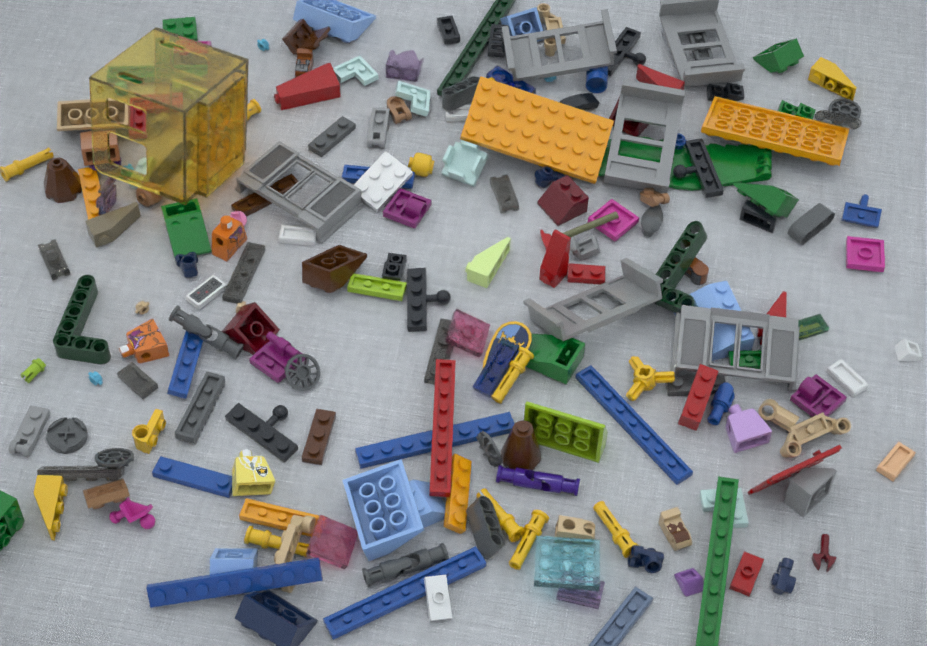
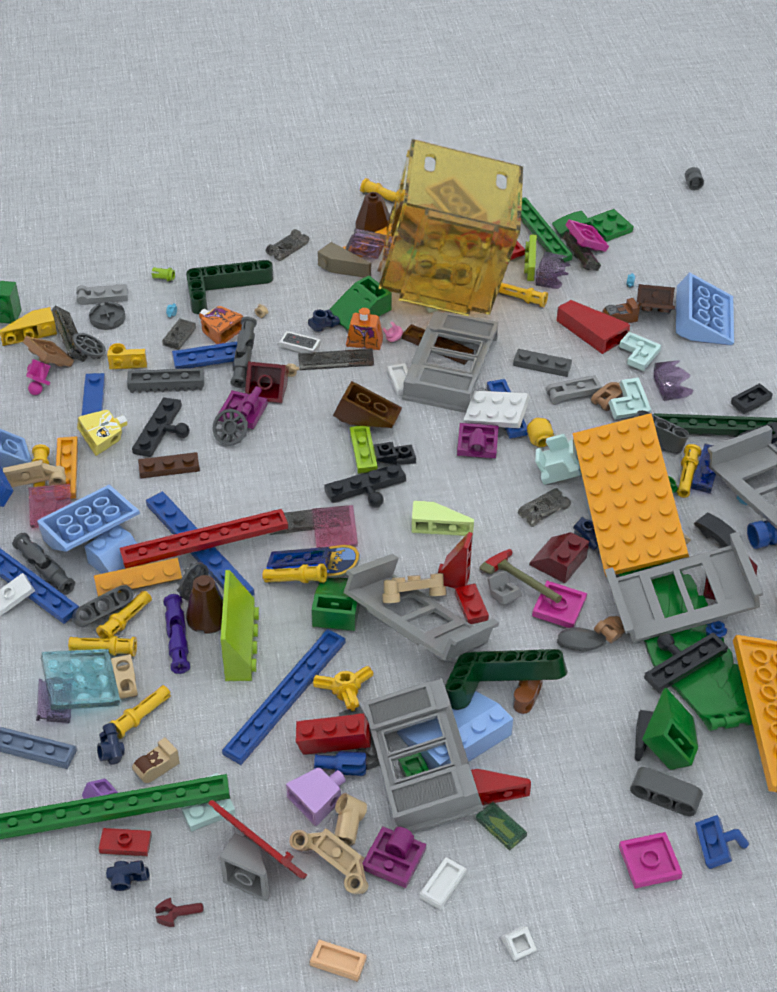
camera: 70 degrees right, 5 degrees down
(564, 303) = (414, 582): none -> tan plate

